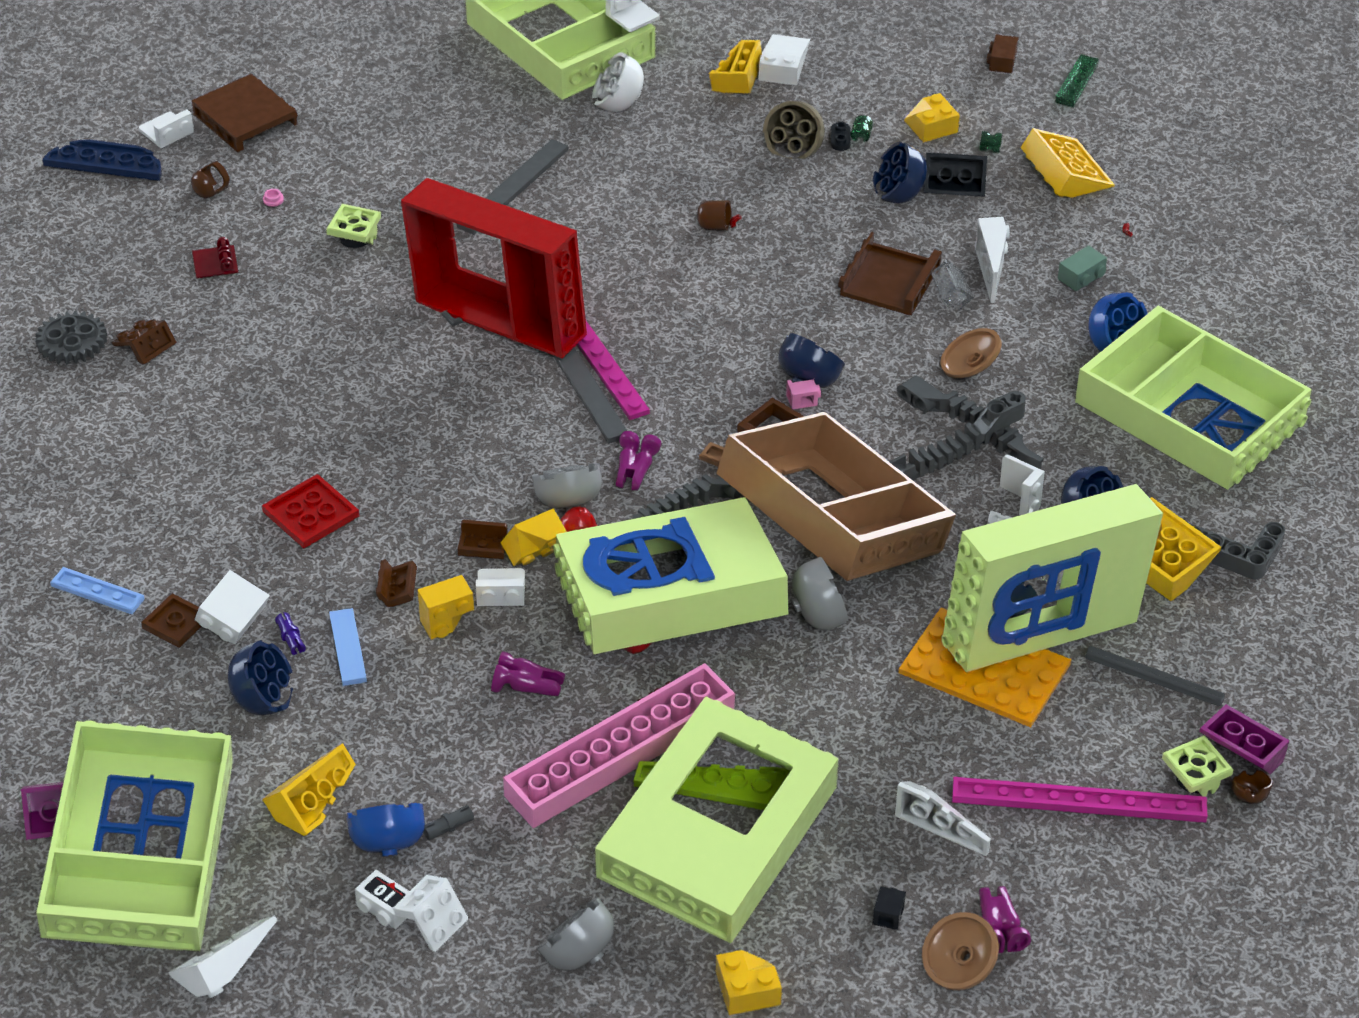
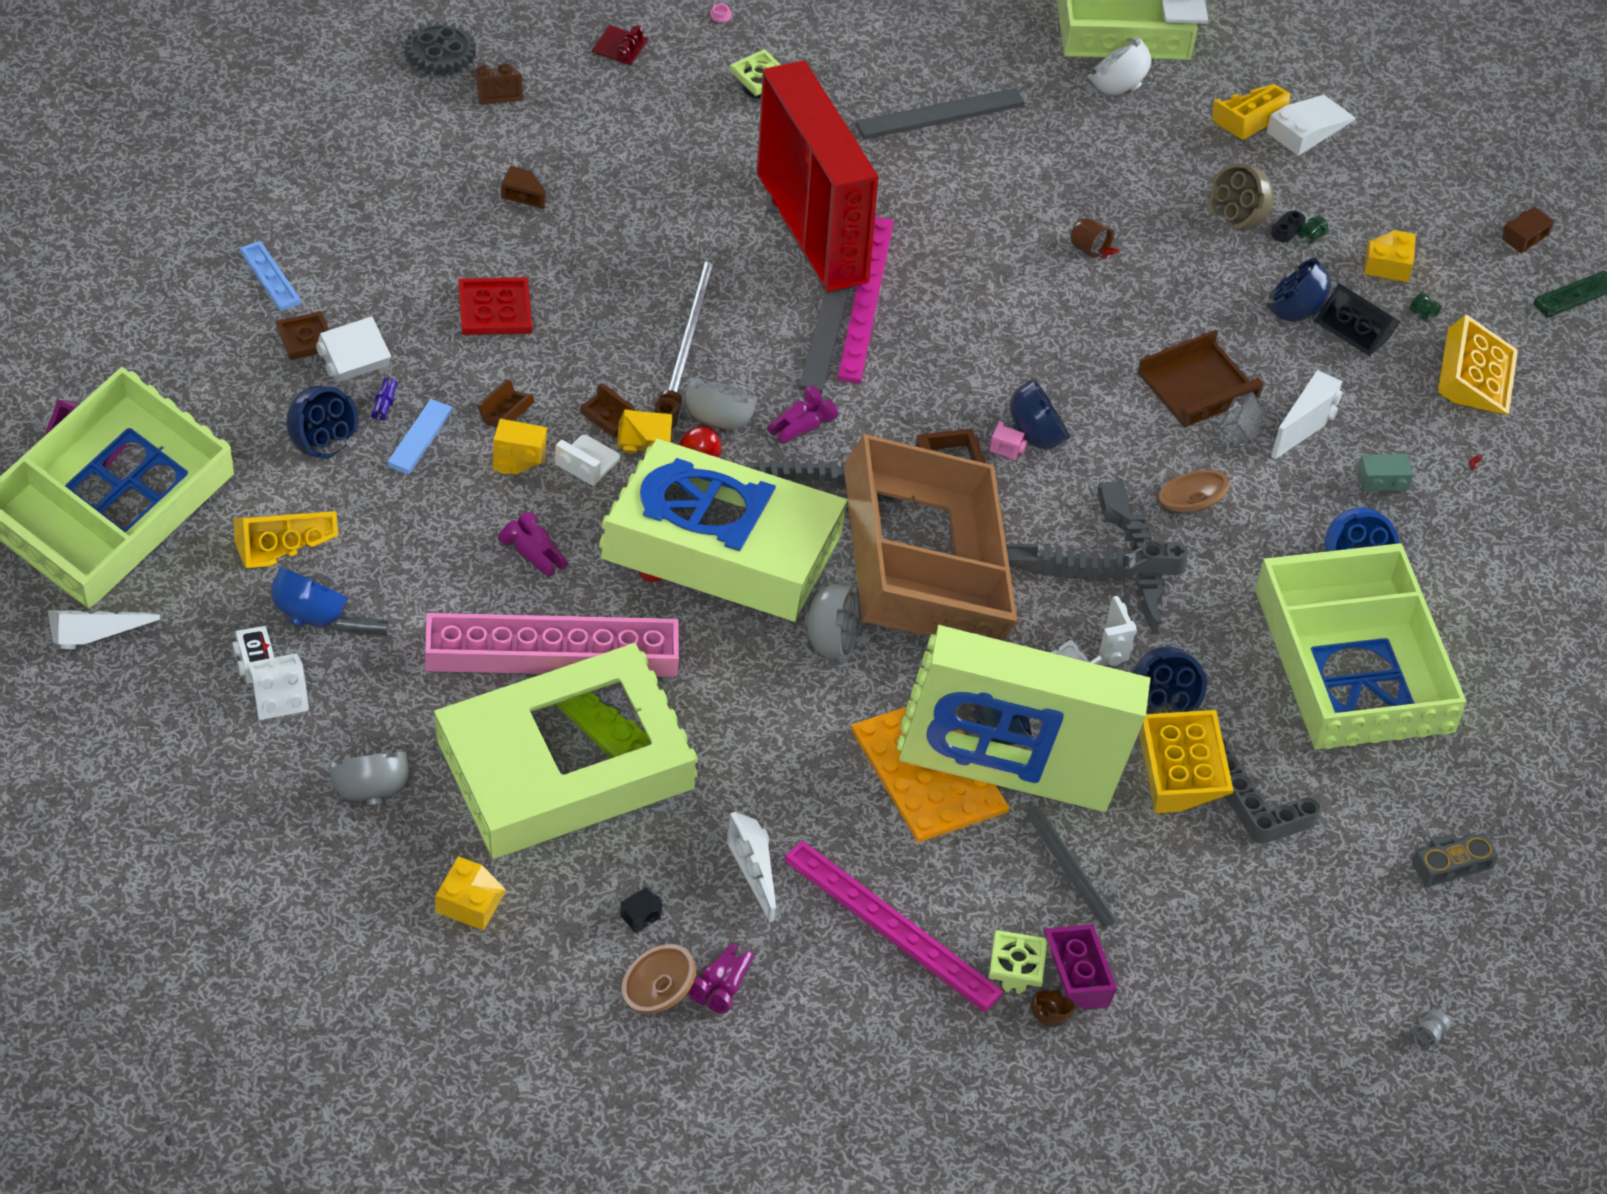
camera: 30 degrees right, 5 degrees up
(247, 407) = (523, 187): none -> reddish brown slope
(522, 505) = (670, 400): none -> flat silver piece

